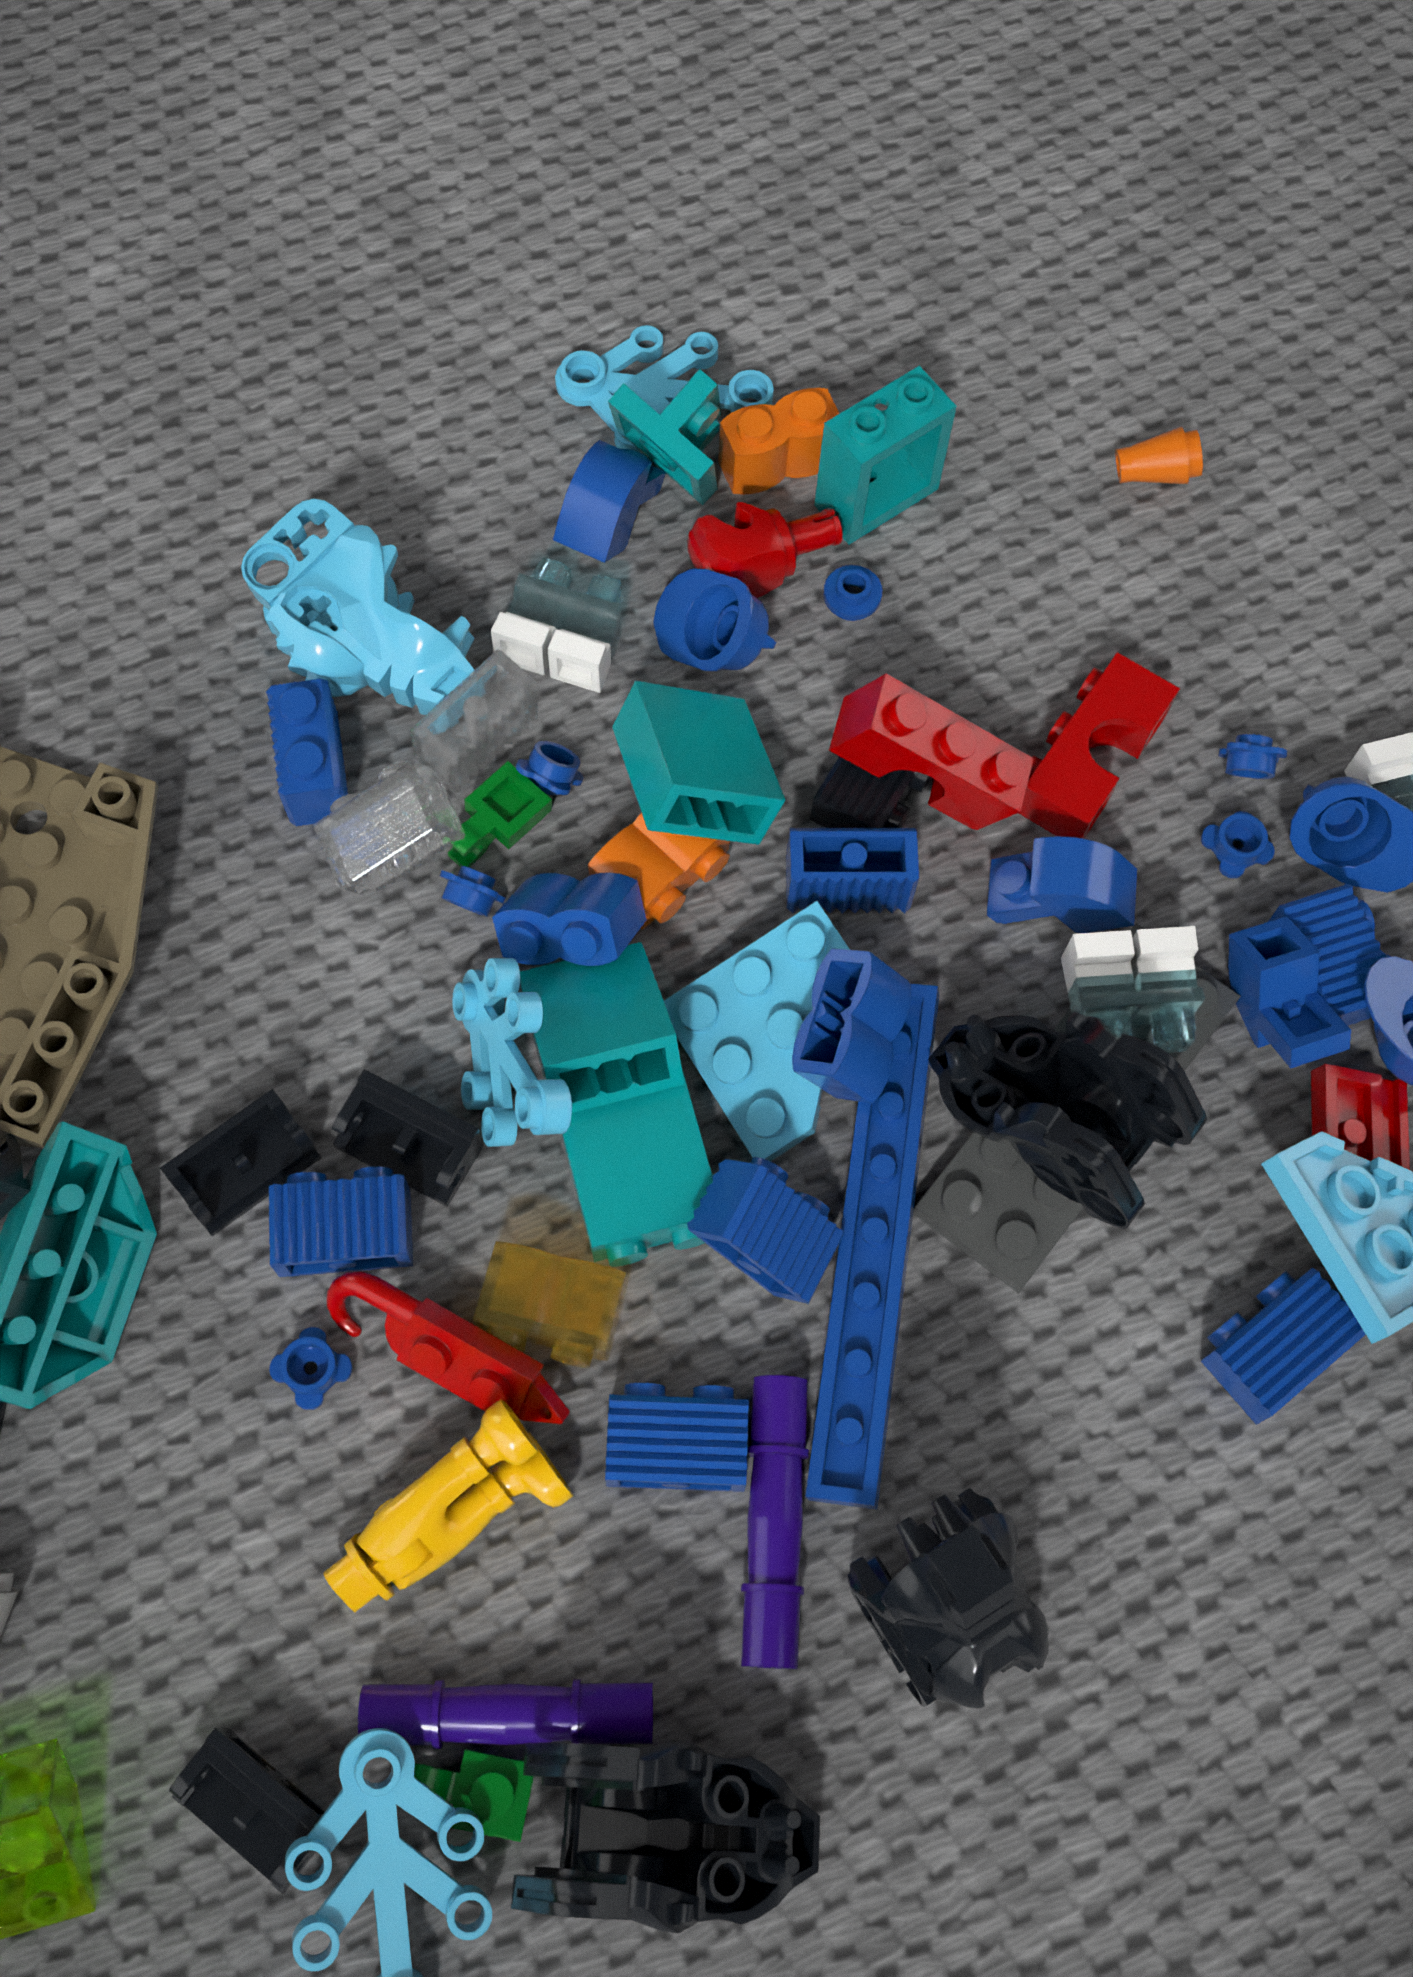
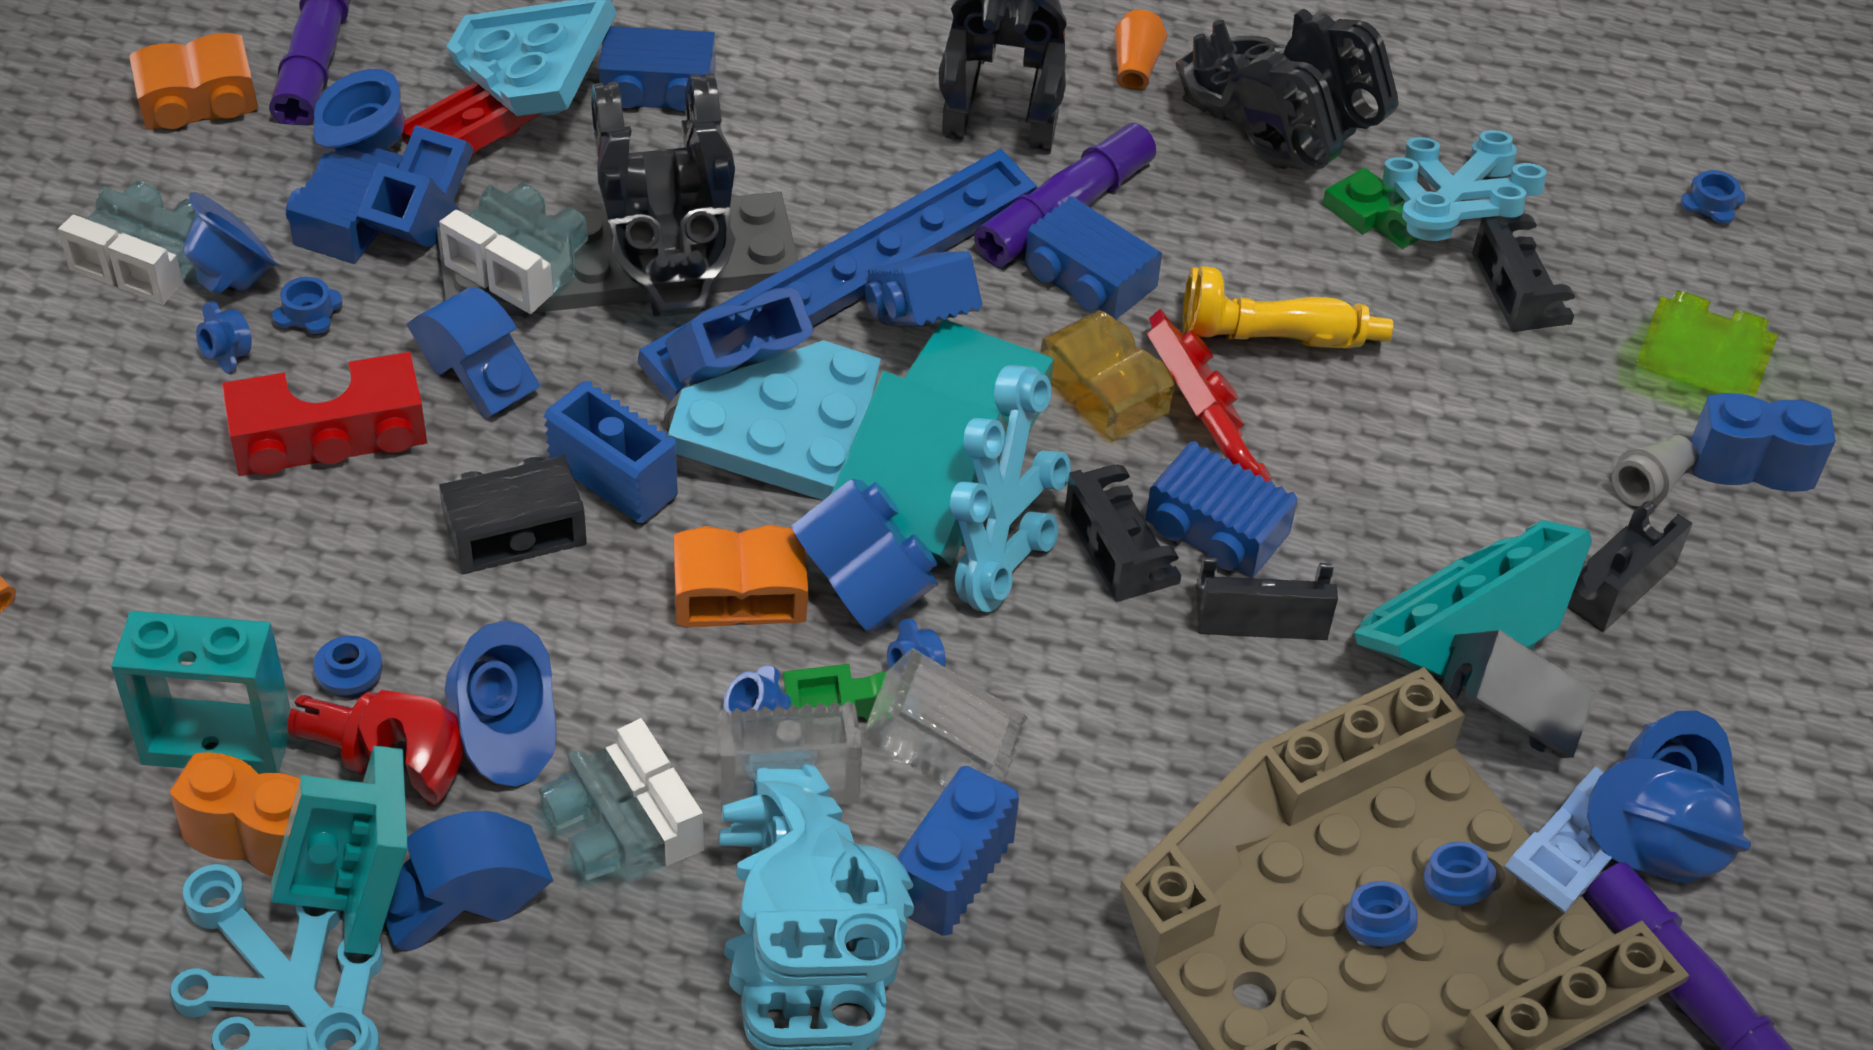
camera: 140 degrees left, 20 degrees down
(291, 1364) = (1311, 456): blue plate -> none
(510, 1713) = (1325, 217): dark purple piece -> none
(697, 764) = (651, 576): teal brick -> none
(888, 1828) = (1138, 46): none -> orange cone
(898, 728) = (474, 448): red arch -> none

